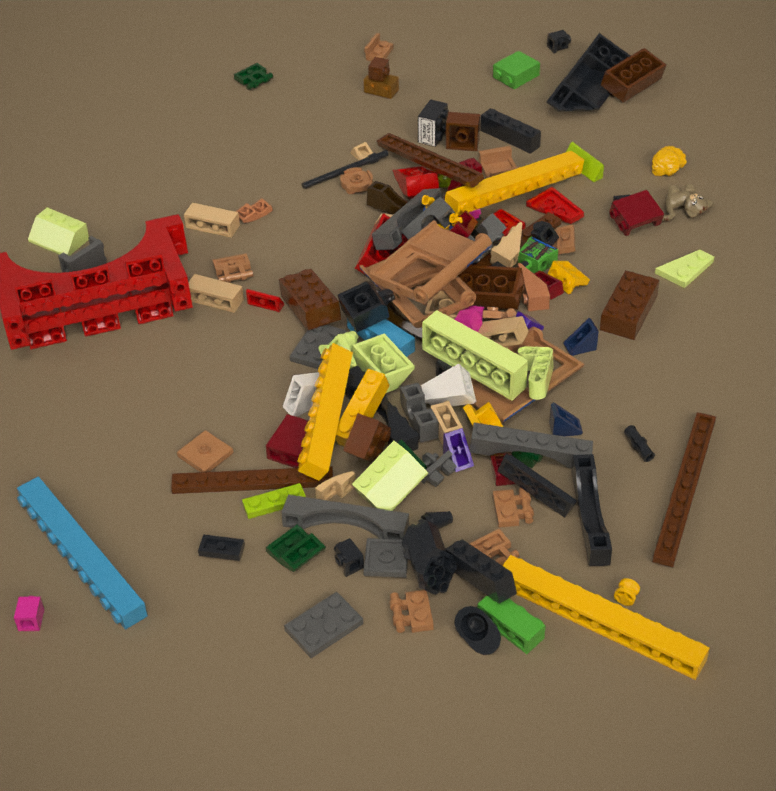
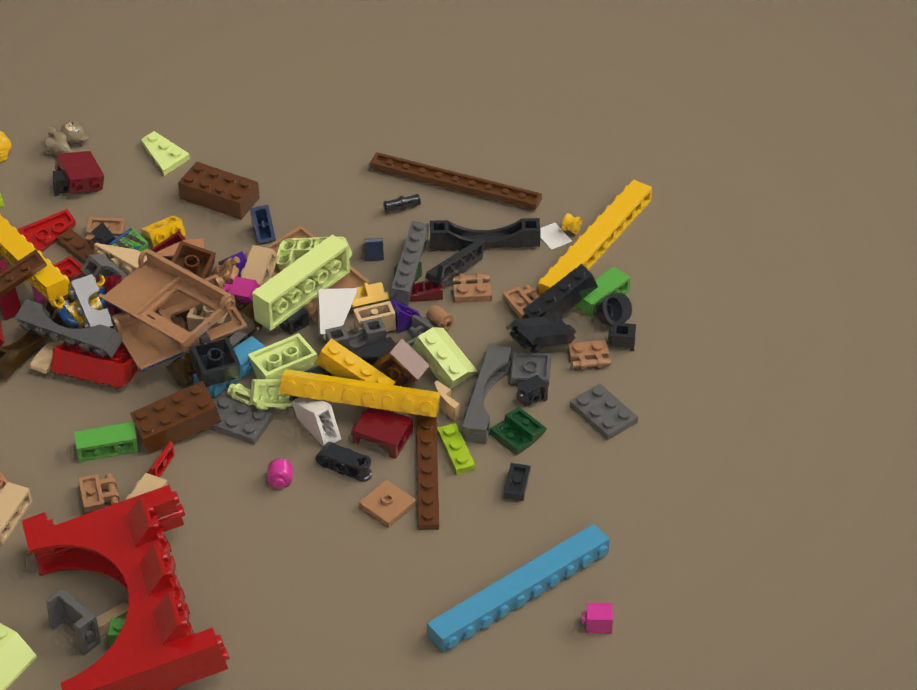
camera: 90 degrees left, 0 degrees up
(244, 374) = (279, 473): none -> dark pink head
(256, 417) = (345, 461): none -> black piece
(287, 259) = (106, 441): none -> bright green brick
(436, 640) = (622, 335): none -> black brick
(439, 518) = (489, 334): black cone -> none
(458, 479) = (439, 317): none -> medium nougat brick
(609, 580) = (554, 236): none -> white sticker

